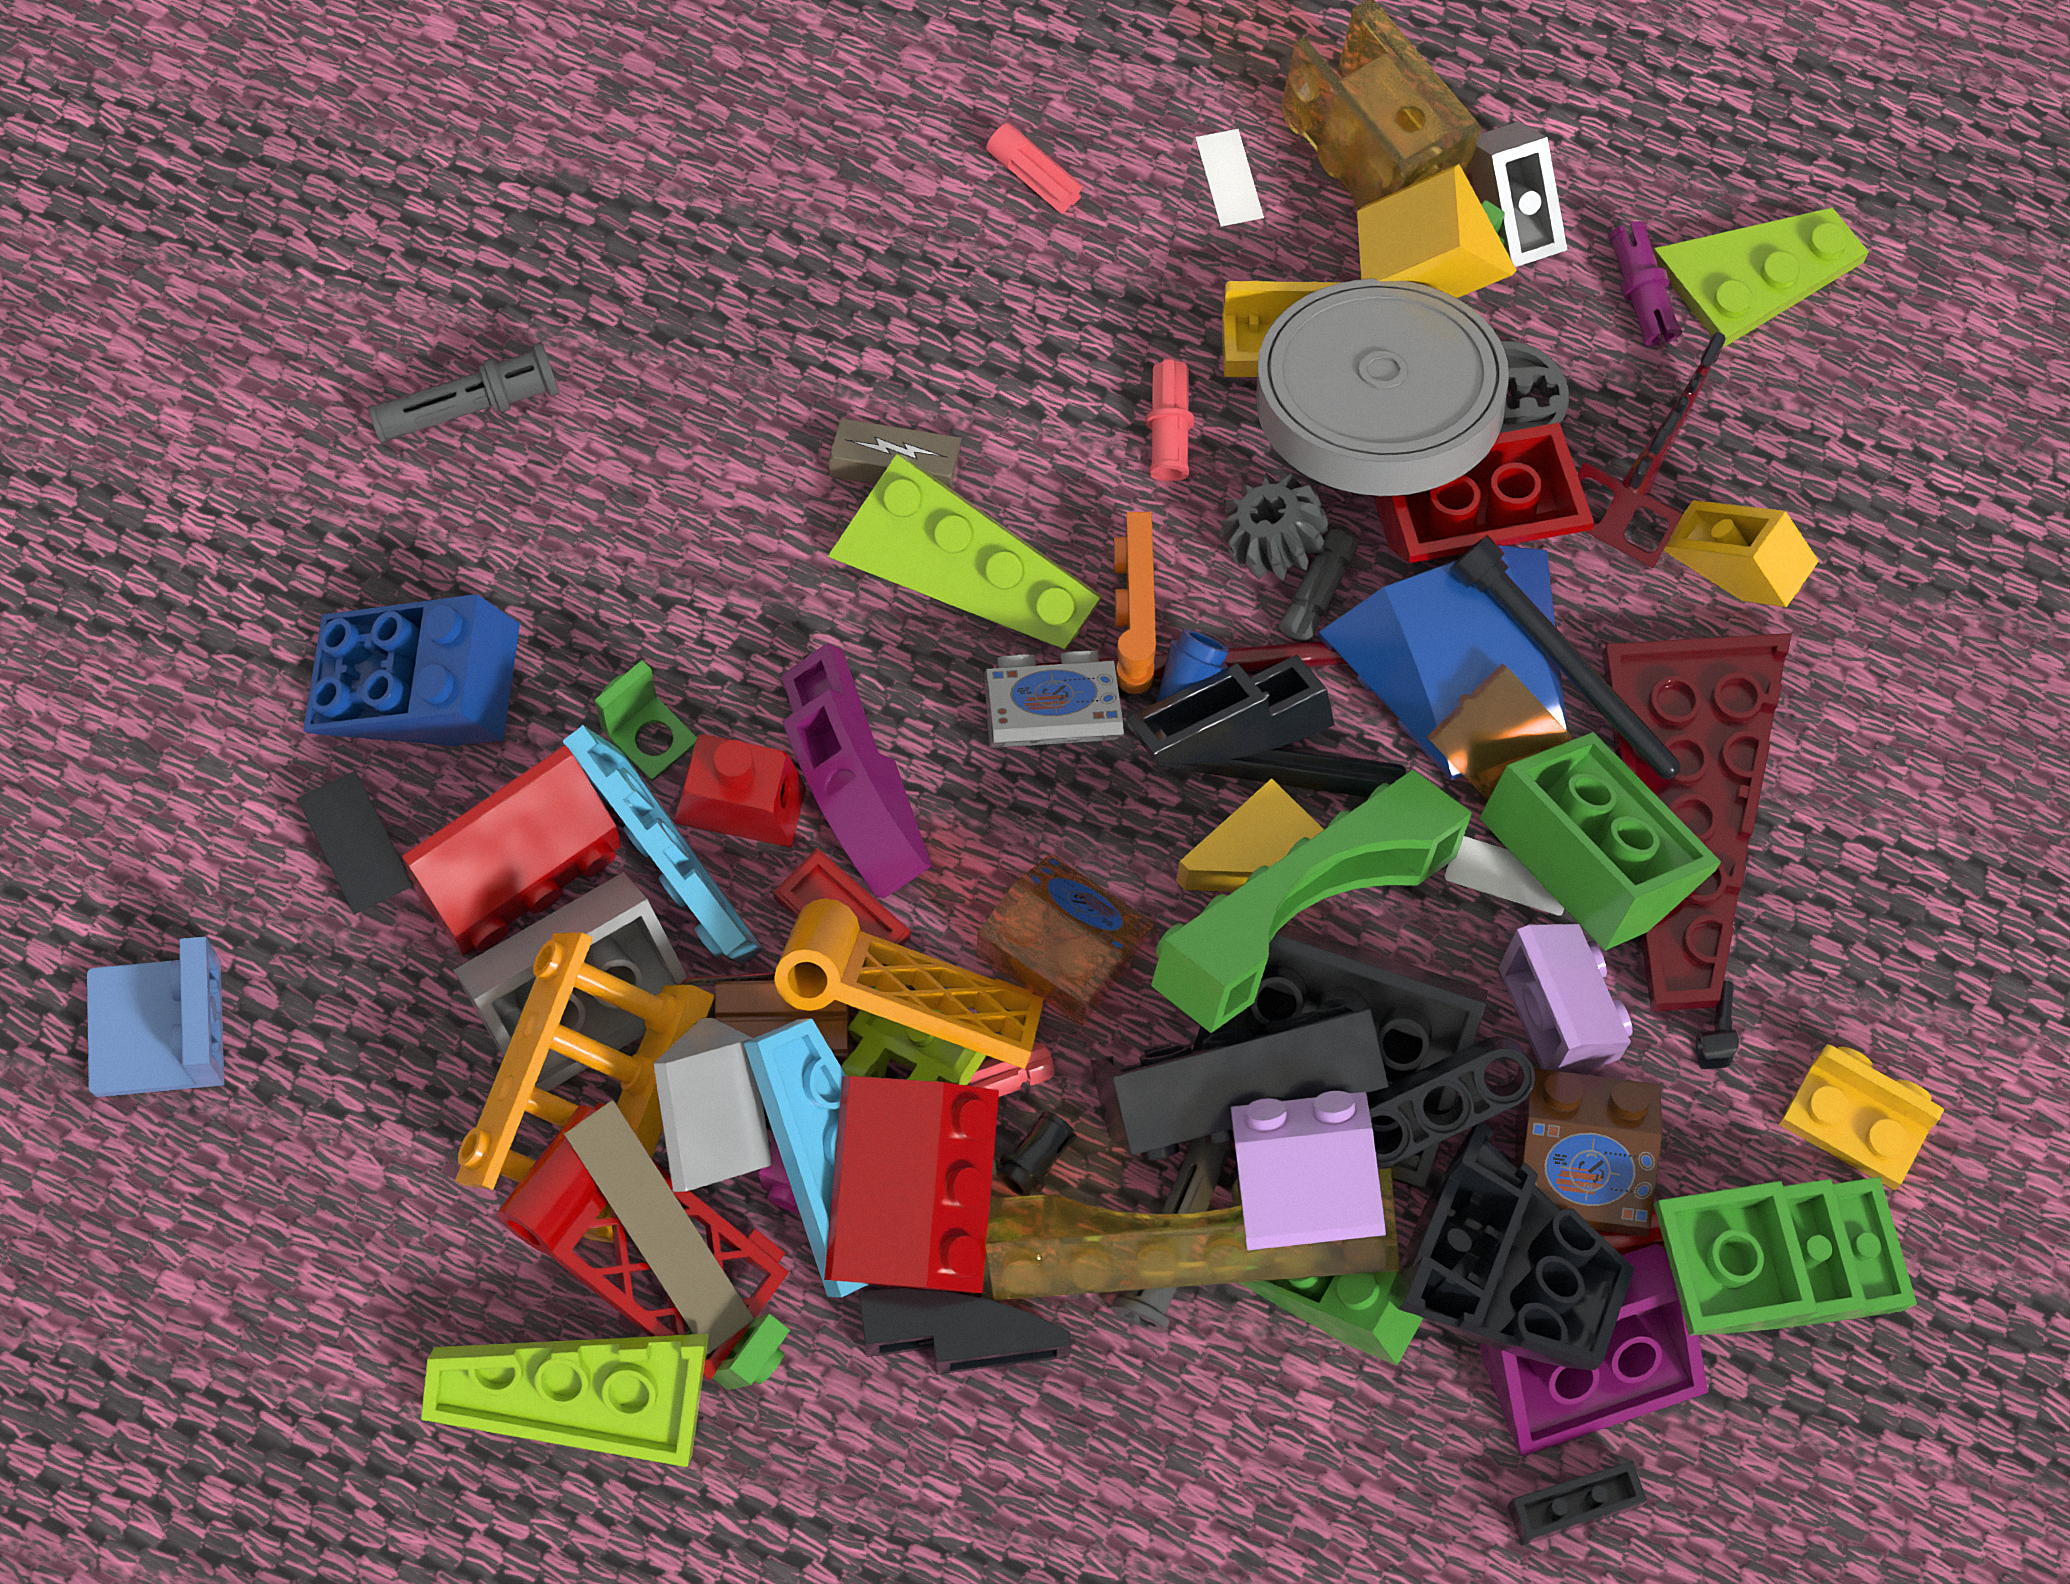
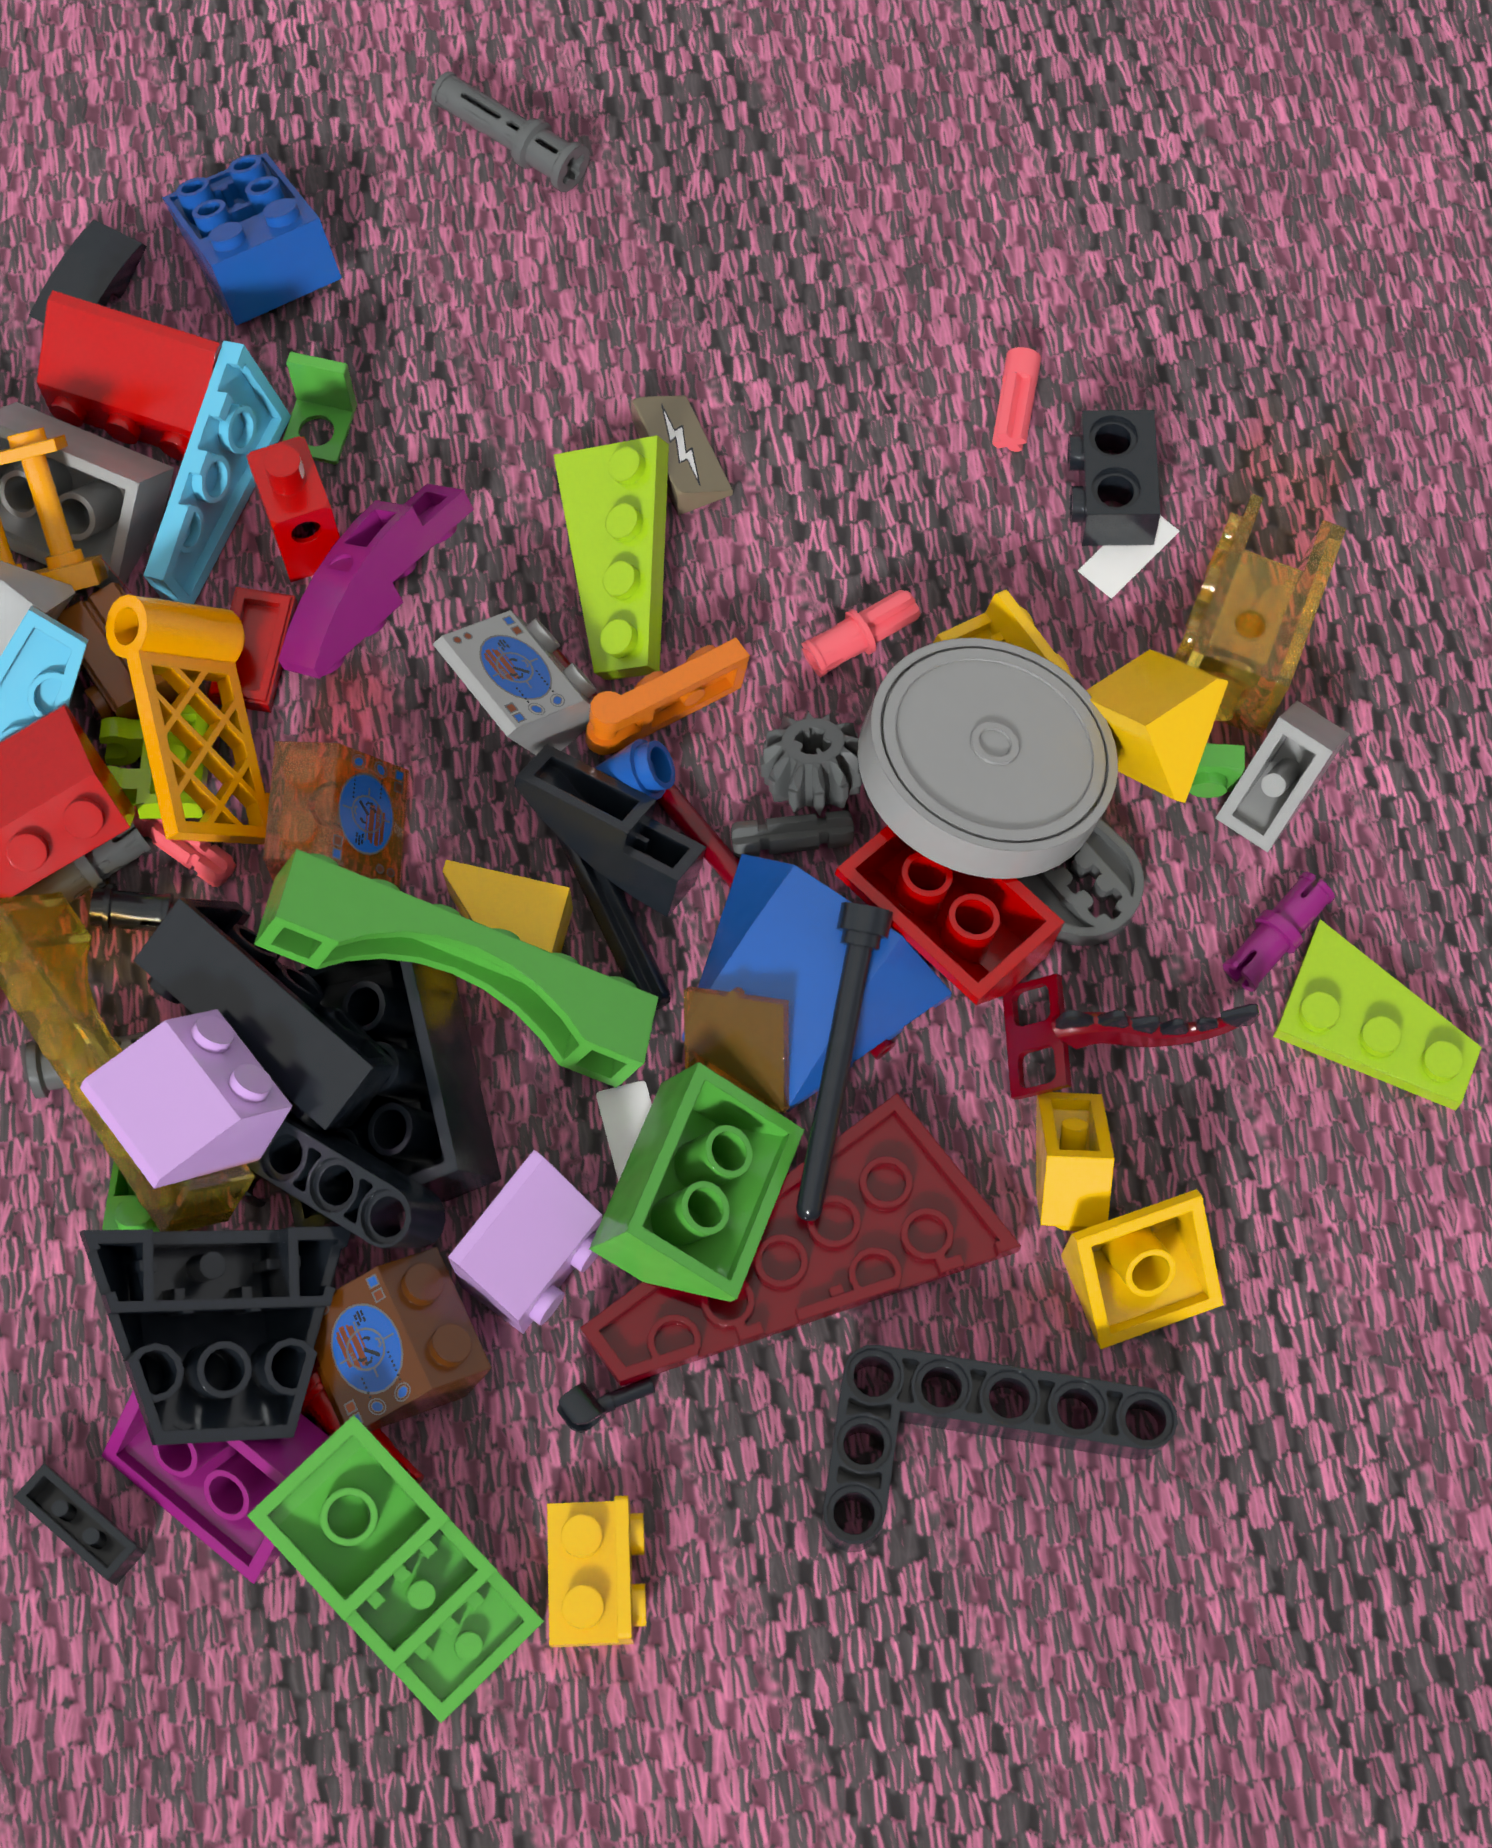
camera: 60 degrees right, 0 degrees up
(1179, 128) = (1121, 478): none -> black brick
(1863, 558) = (1144, 1269): none -> yellow slope
(1896, 752) = (973, 1415): none -> black beam

